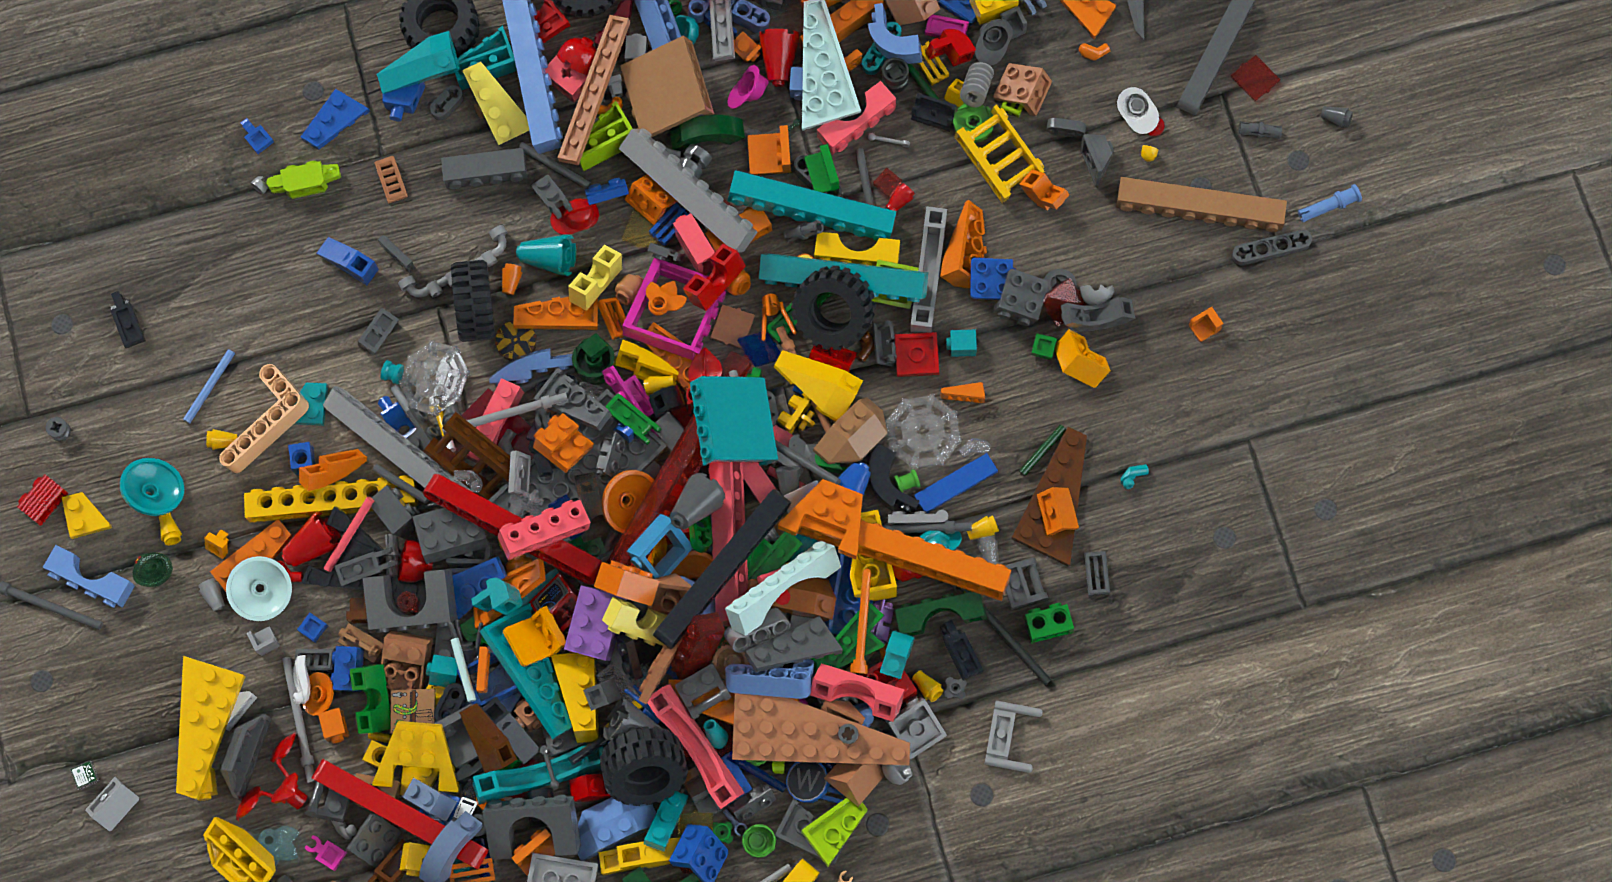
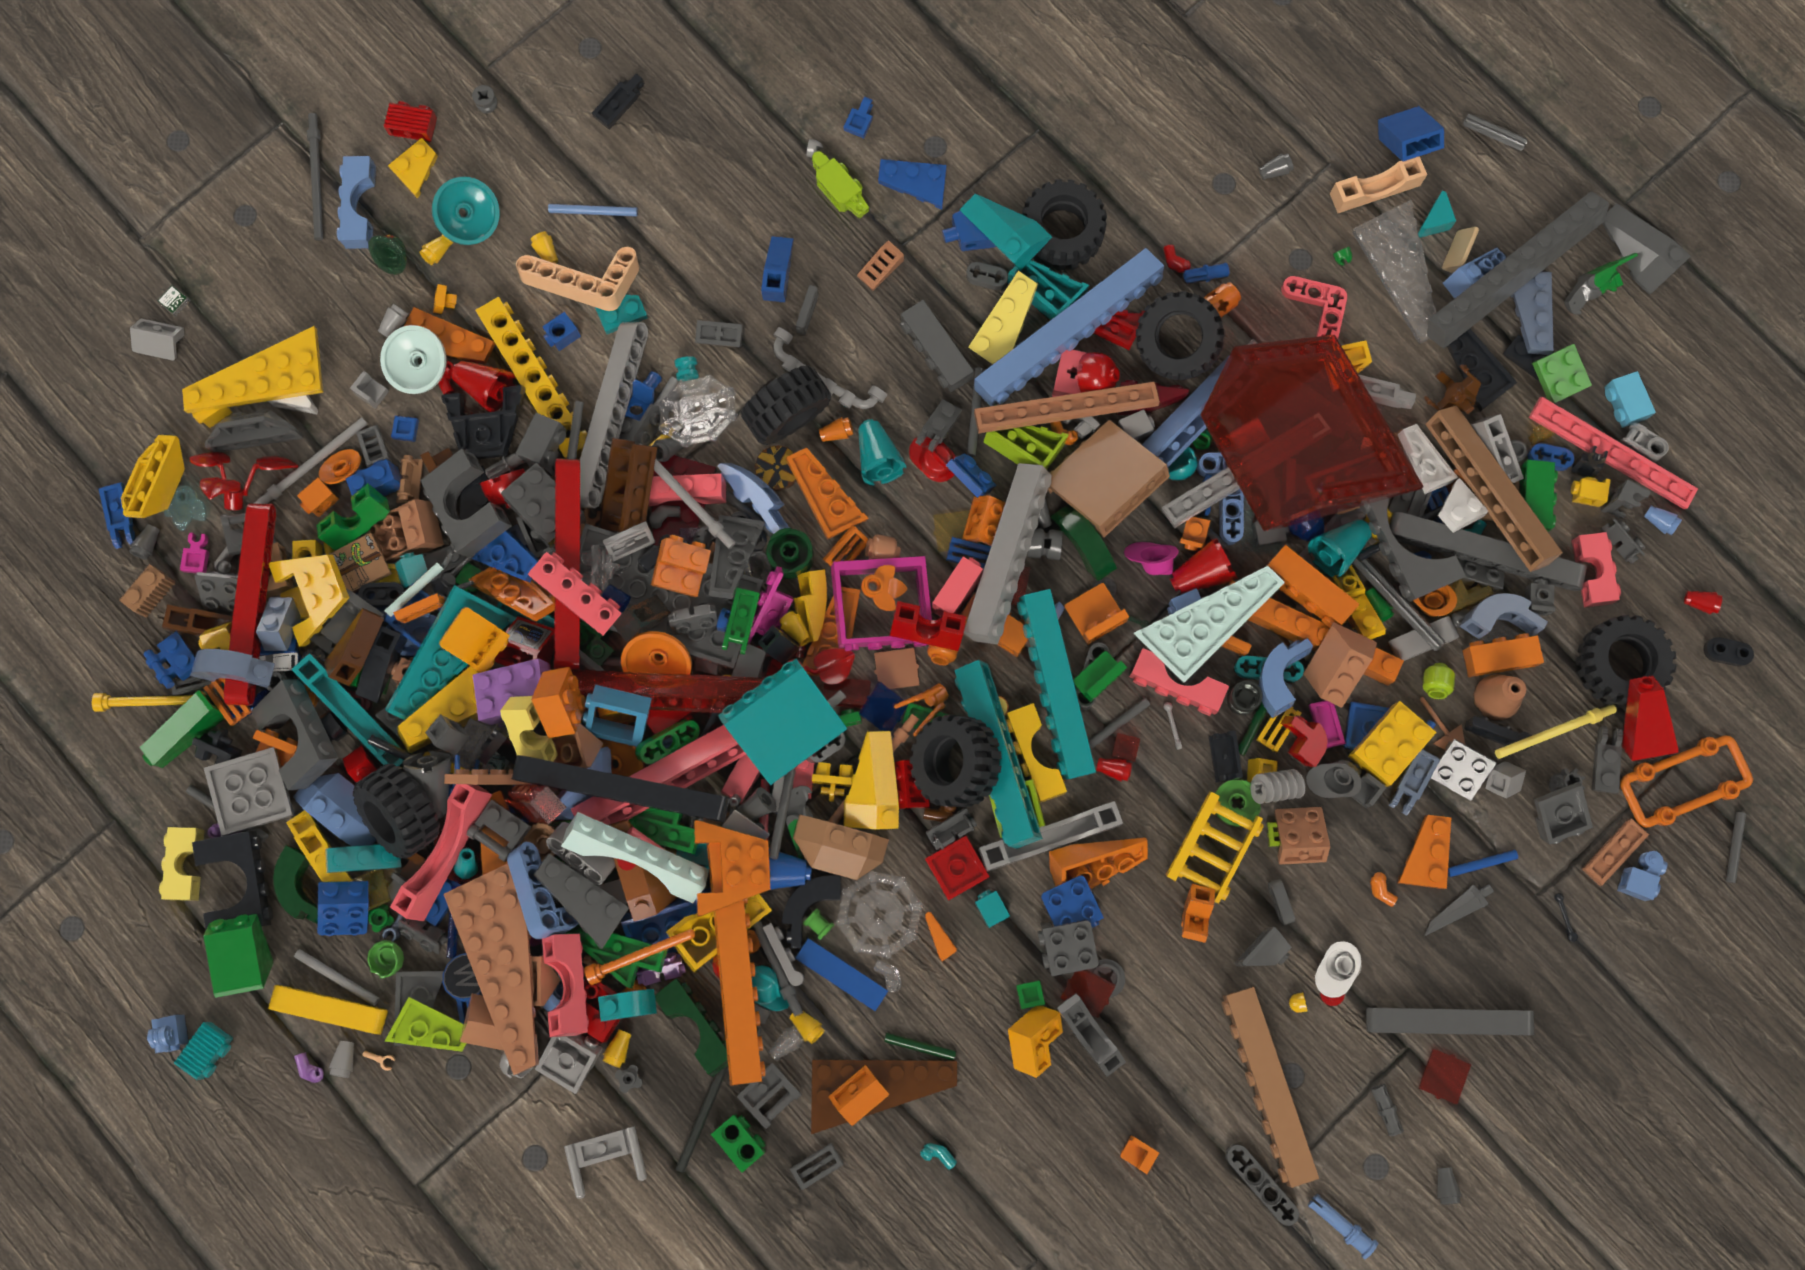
camera: 60 degrees right, 5 degrees up
(301, 680) = (344, 446): white arm -> none
(330, 469) = (561, 363): orange slope -> none
(348, 534) = (499, 413): coral bar -> none
(363, 566) = (477, 444): dark grey hinge -> none
(401, 601) = (463, 496): clear red plate -> none
(471, 479) = (610, 496): clear arm -> none
(498, 596) = (500, 586): teal brick -> none
(544, 751) = (376, 706): dark grey hinge -> none
(587, 288) = (887, 514): light yellow arch -> none
(594, 347) = (798, 545): dark green slope -> none
(664, 253) = (936, 564): dark grey plate -> none
(697, 501) = (676, 727): dark grey cone -> none
(803, 231) = (1027, 689): dark grey pin -> none
(854, 736) = (515, 990): dark grey bush -> none
(960, 651) = (668, 1066): black hinge -> none
(1097, 297) = (1110, 1022): light grey hair -> none

